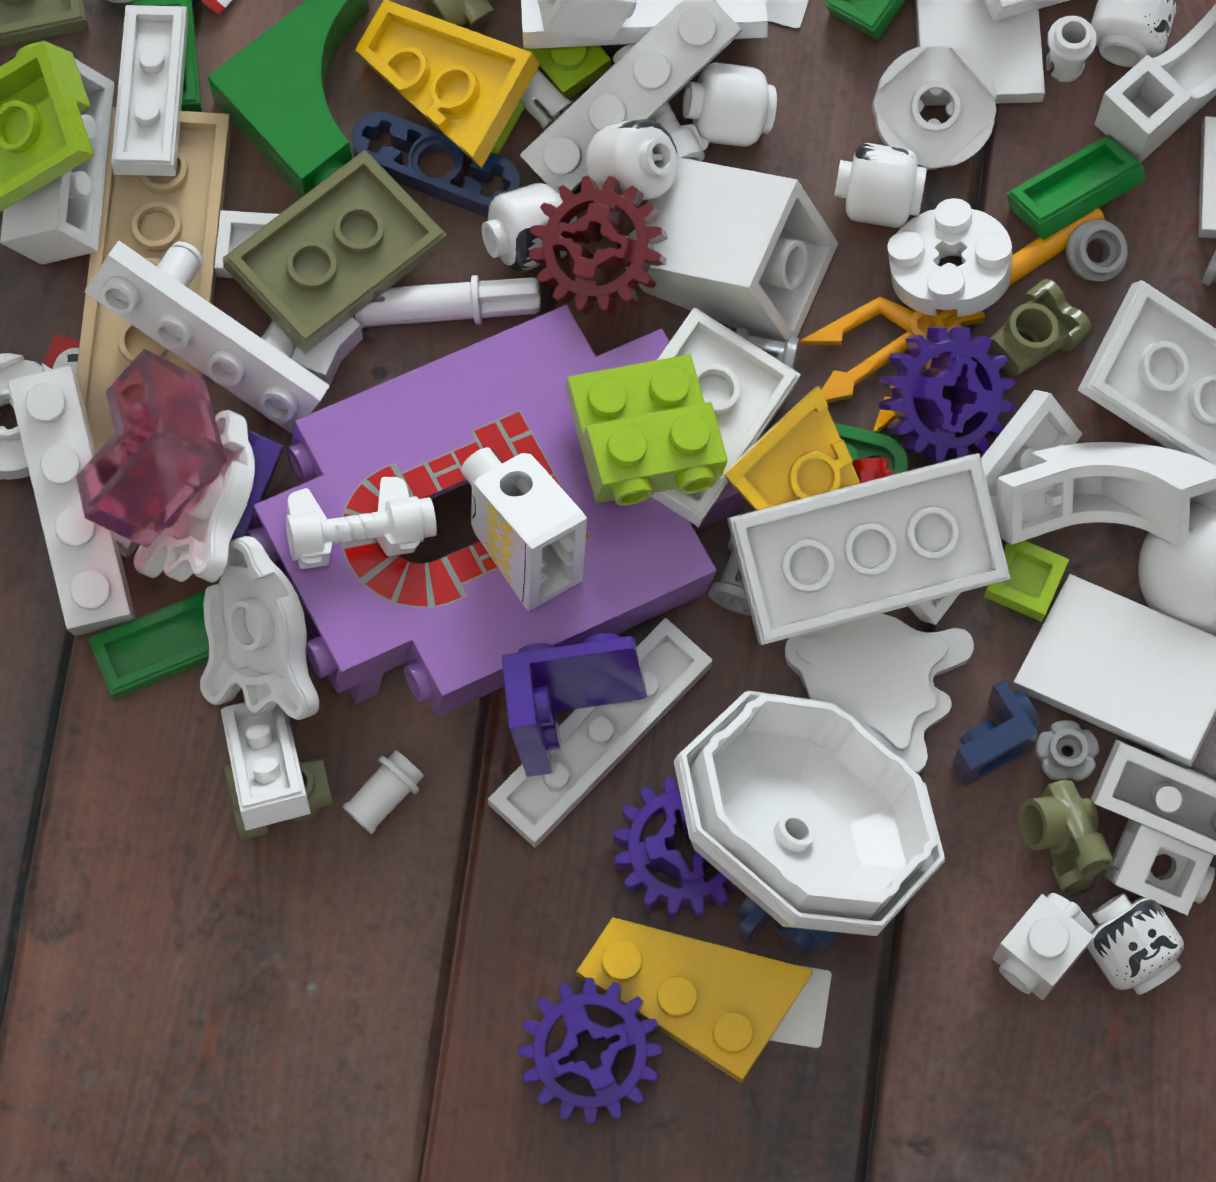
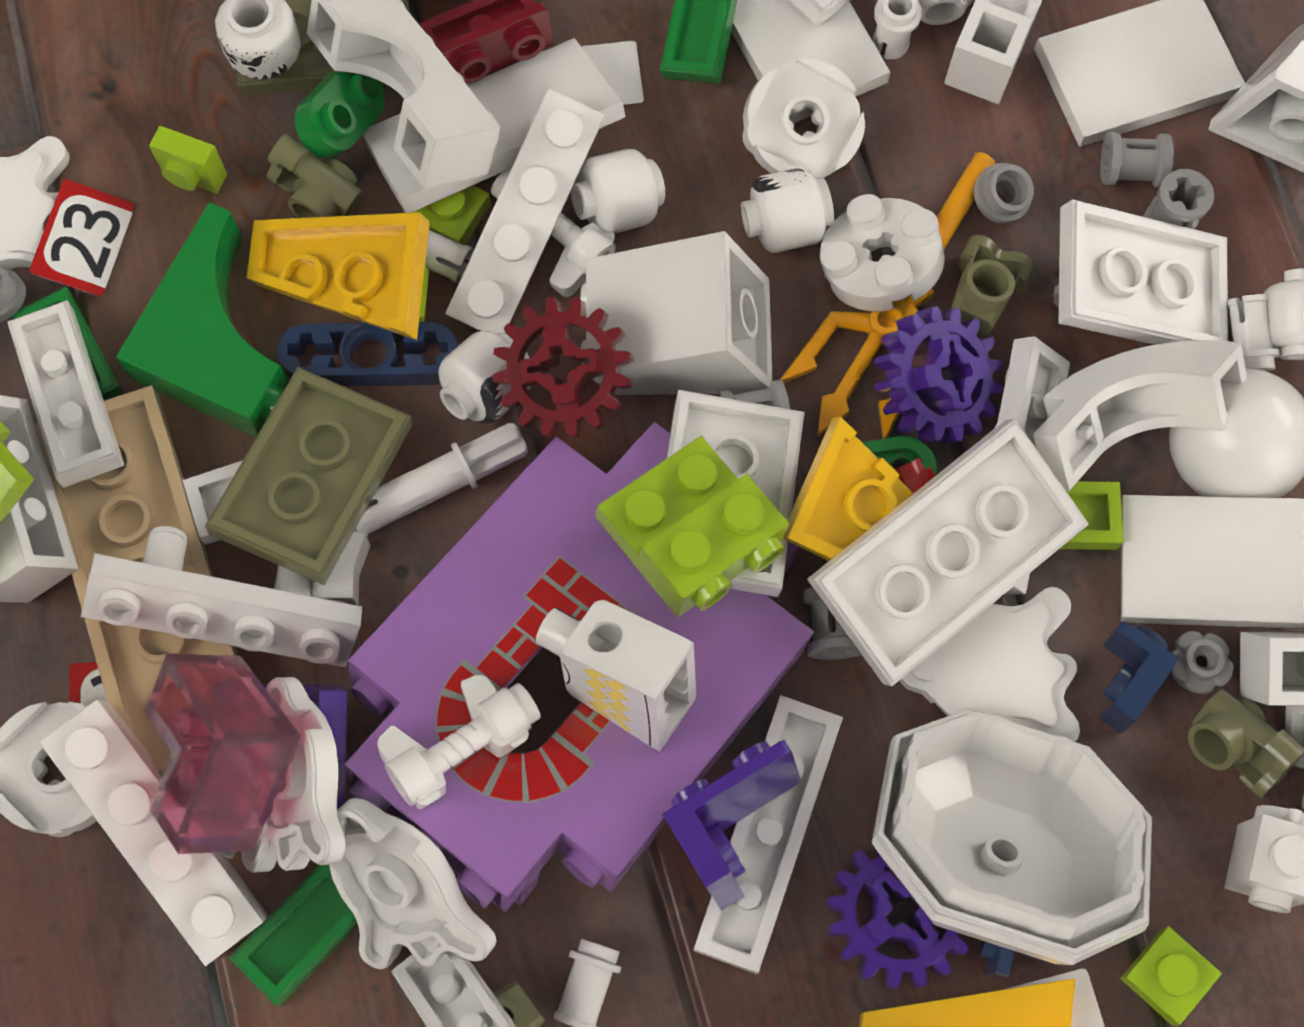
camera: 25 degrees left, 0 degrees up
(636, 155) = (560, 268): white head -> none
(902, 1007) = (1170, 976): none -> lime plate
(1075, 187) = (957, 144): green tile -> none

